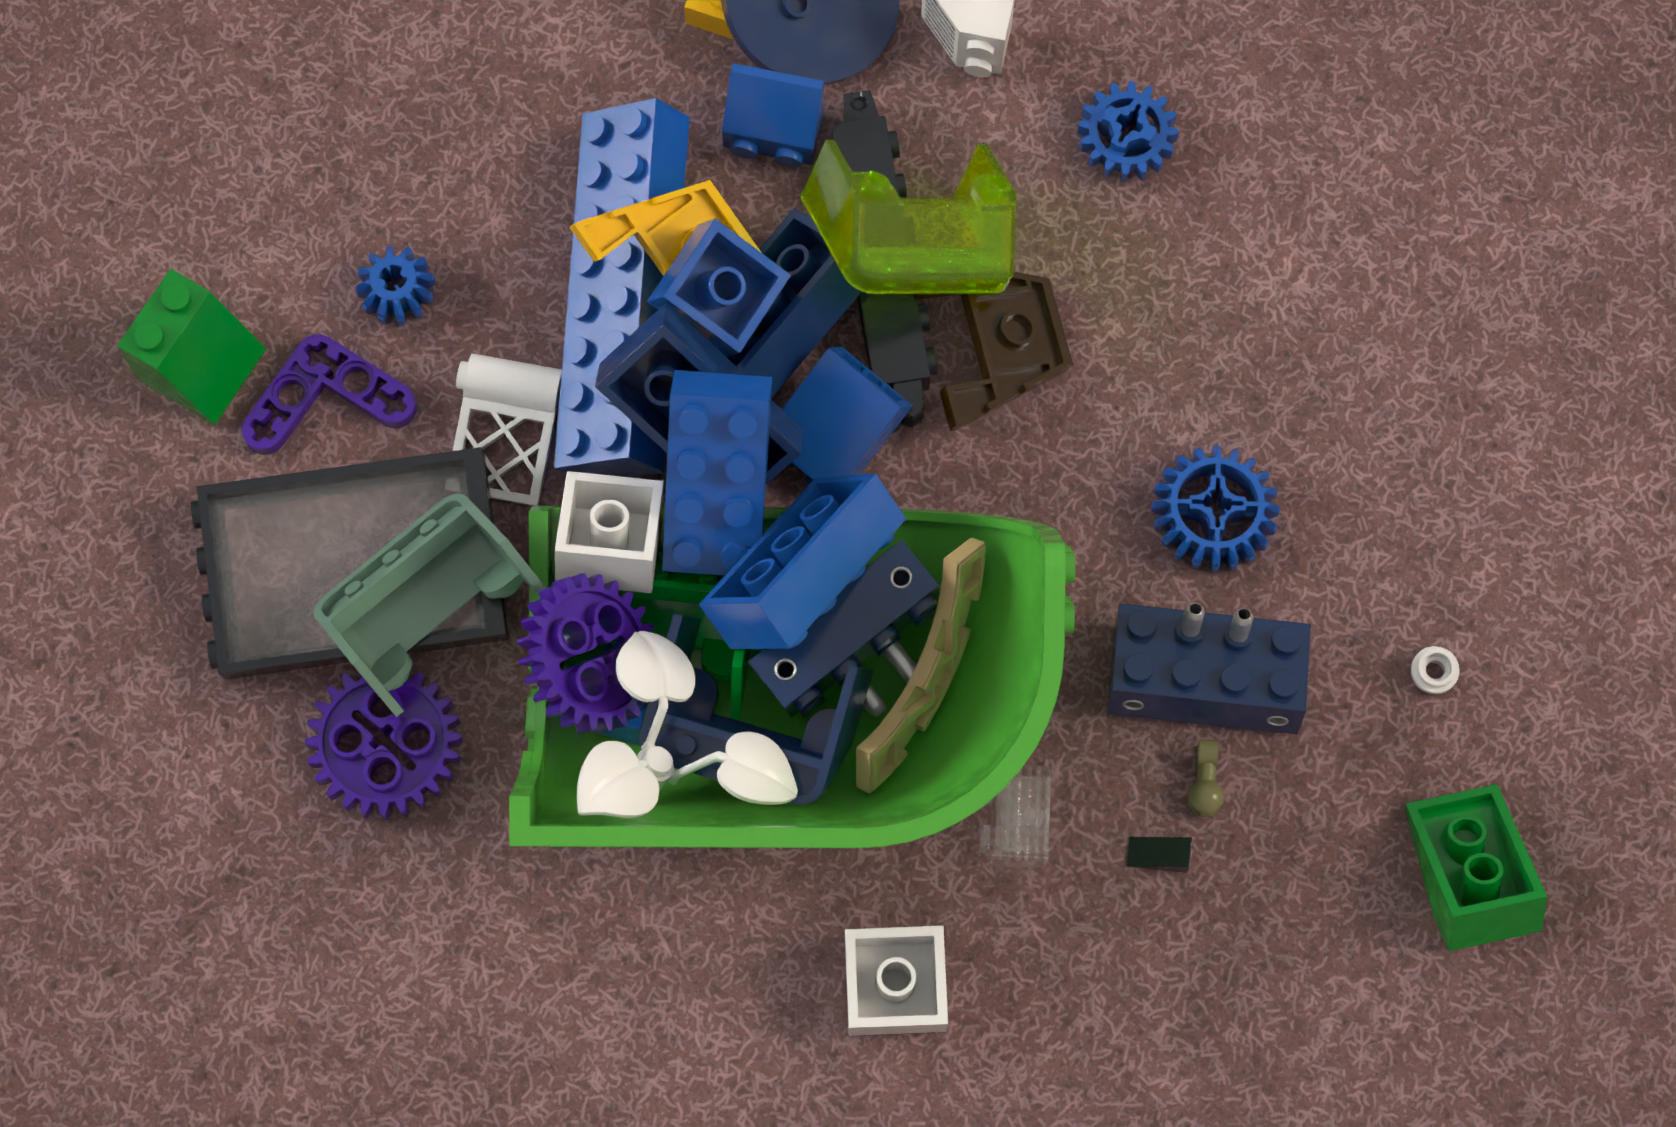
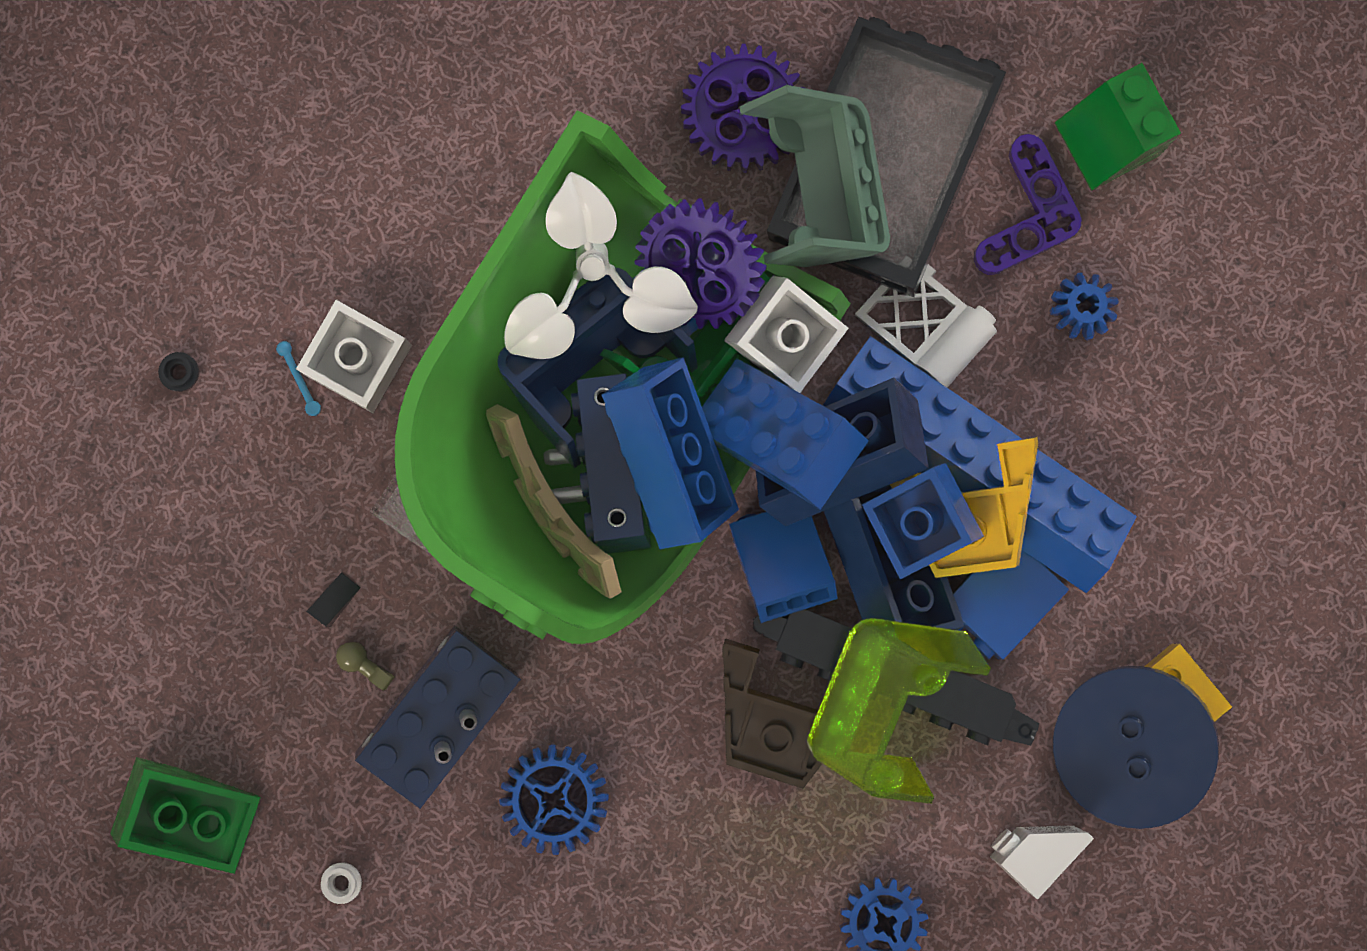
camera: 125 degrees right, 10 degrees up
(753, 182) = (1007, 604): none -> blue panel
(773, 115) = (1051, 657): blue slope -> none
(974, 1003) = (312, 407): none -> dark azure hinge

